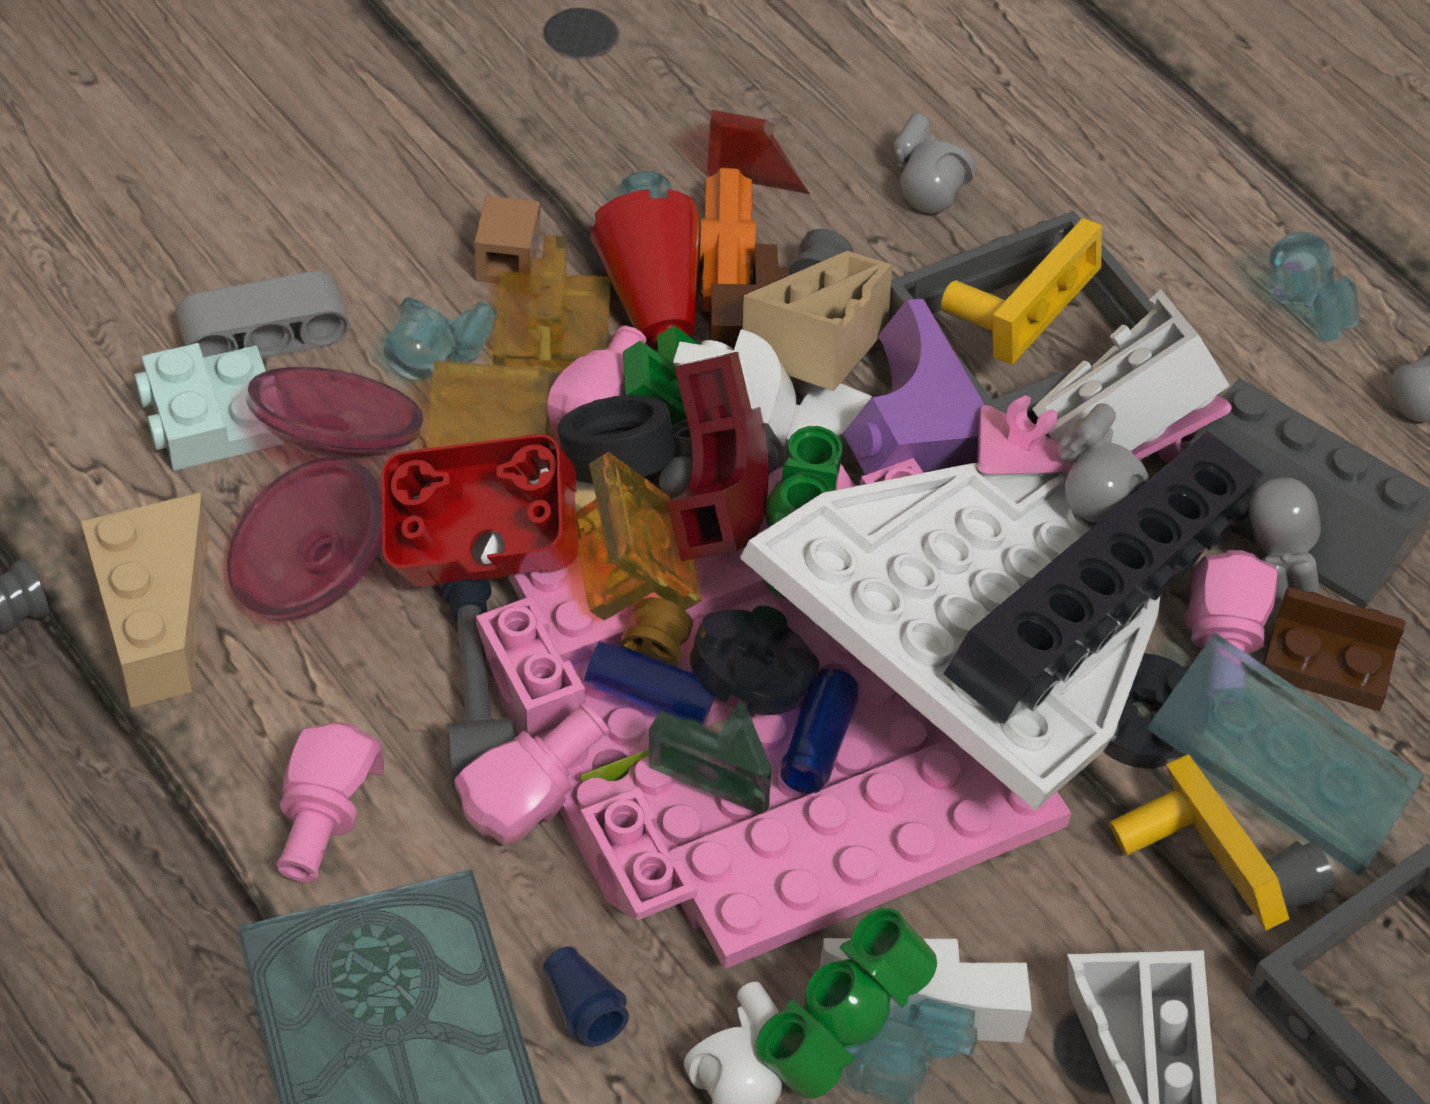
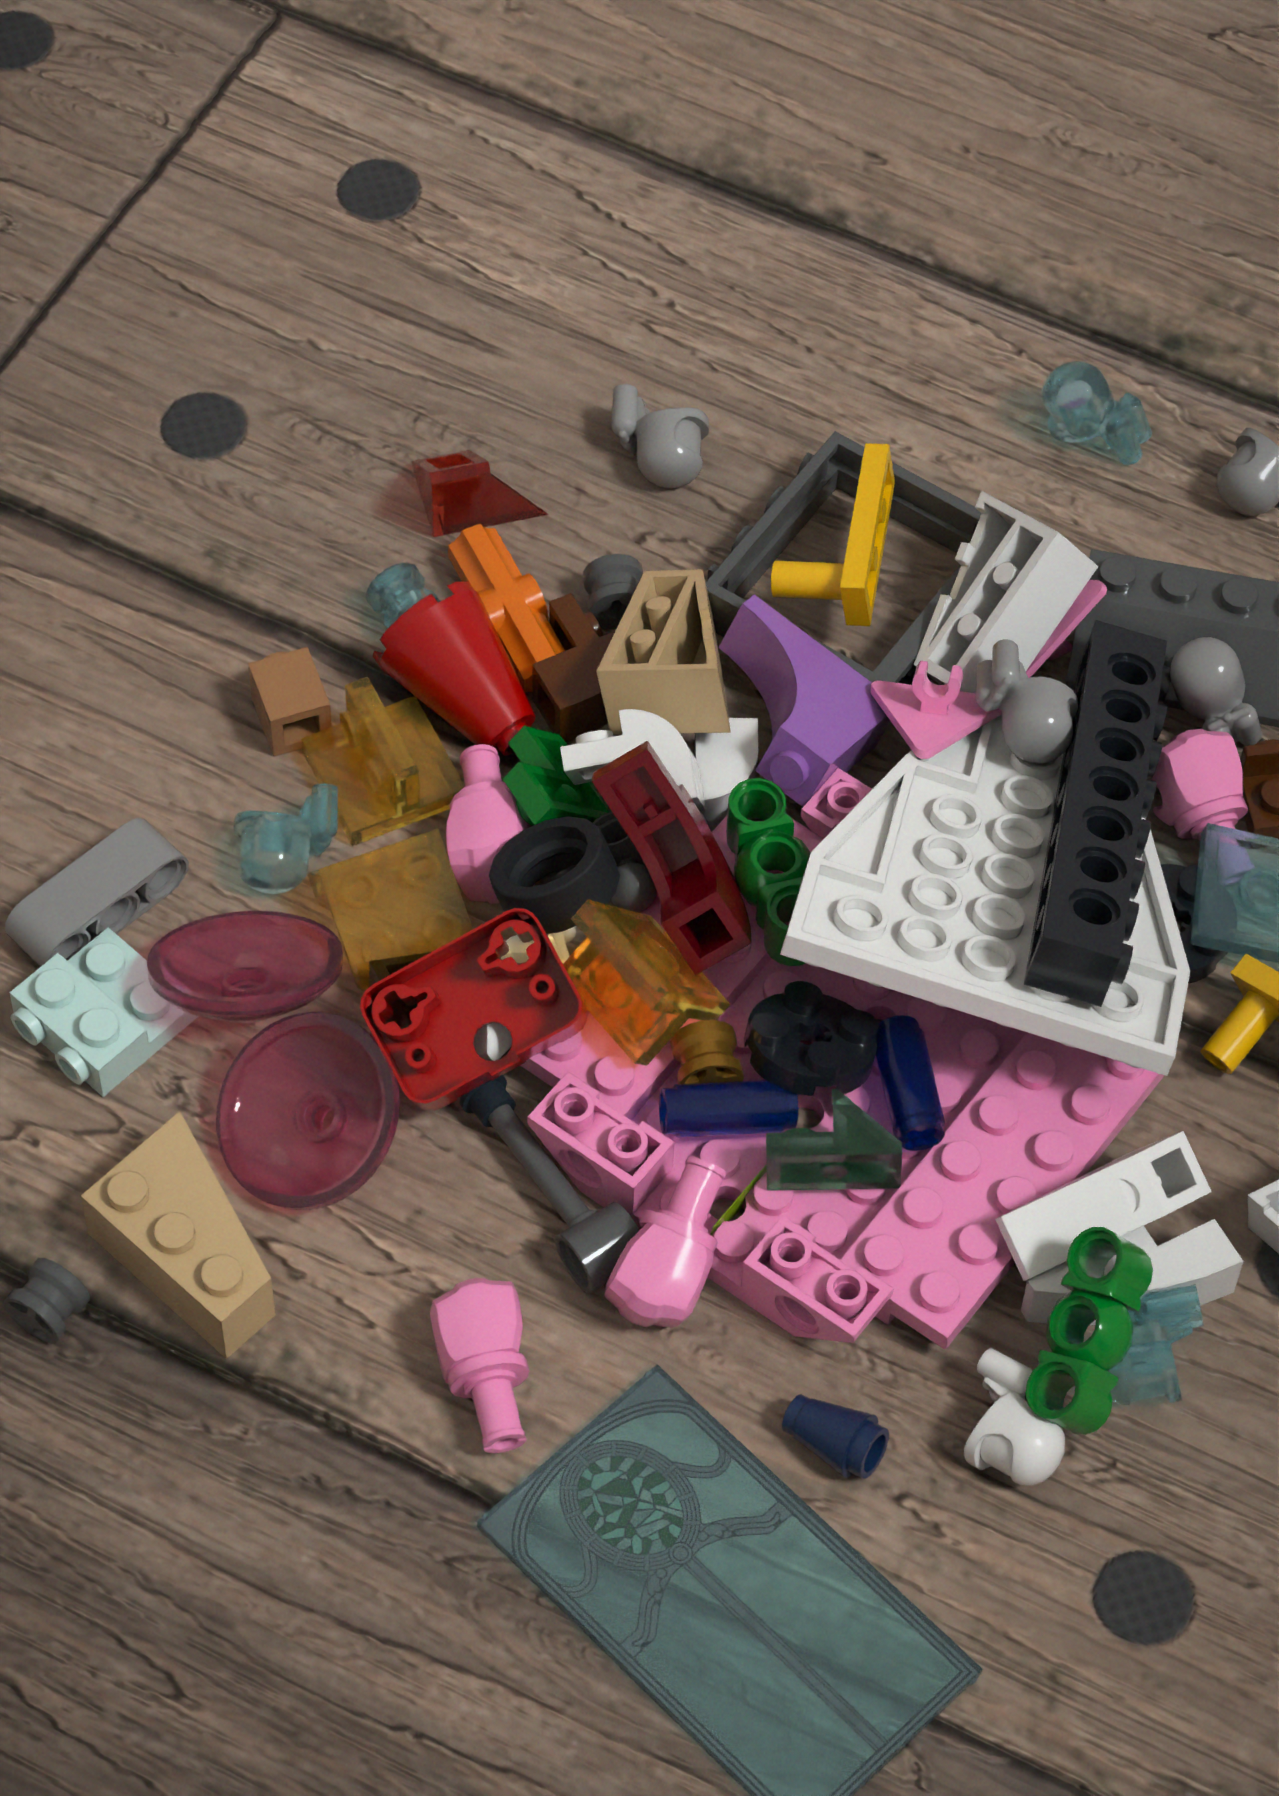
camera: 25 degrees left, 5 degrees up
(936, 902) = (1114, 1196): none -> white slope

